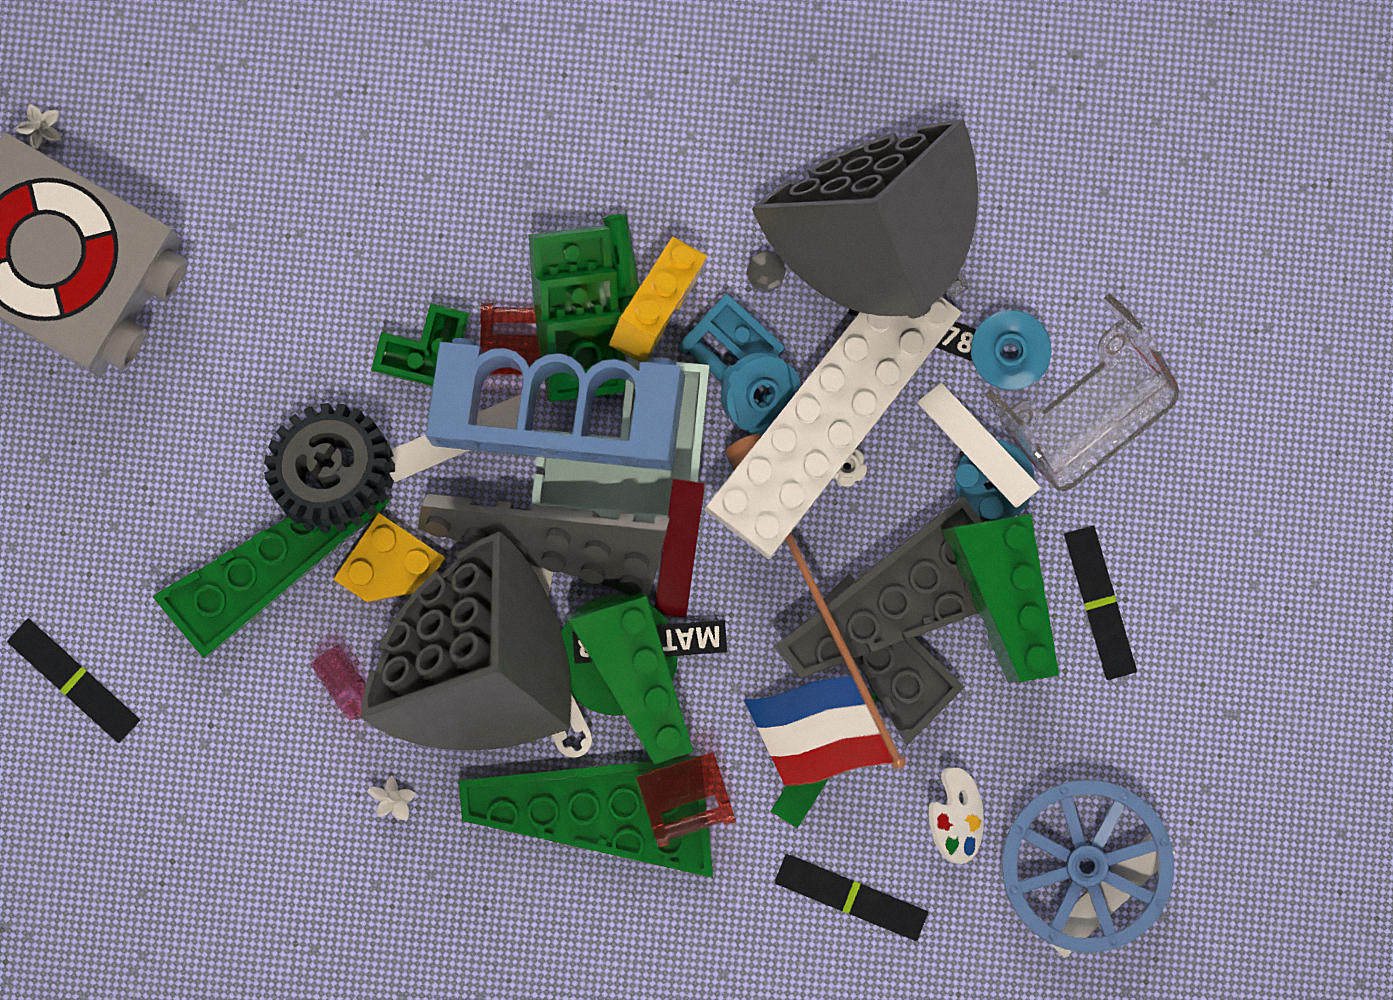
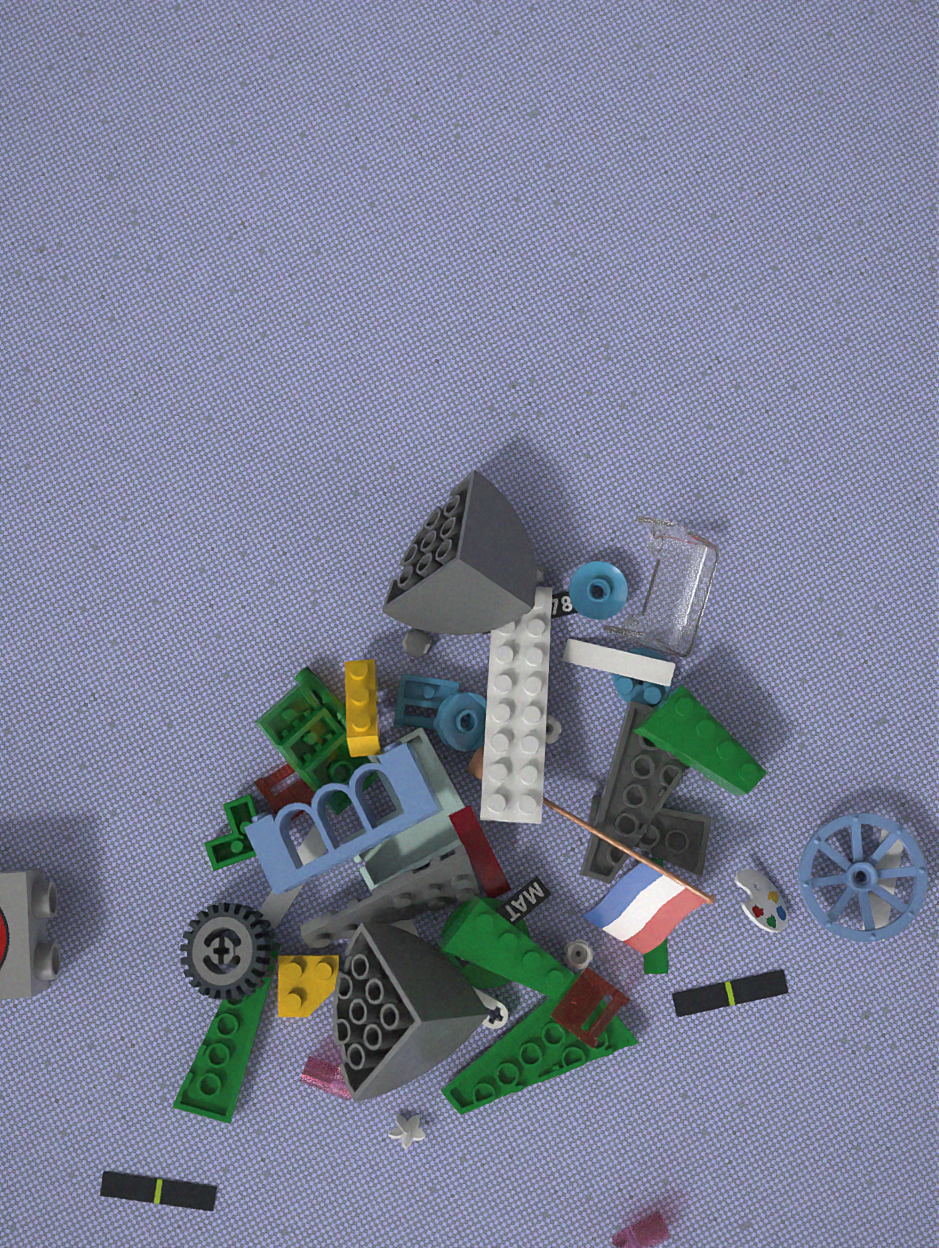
camera: 30 degrees left, 0 degrees up
(710, 726) = (586, 953): none -> white plate
(1100, 603) = (756, 707): black sticker -> none

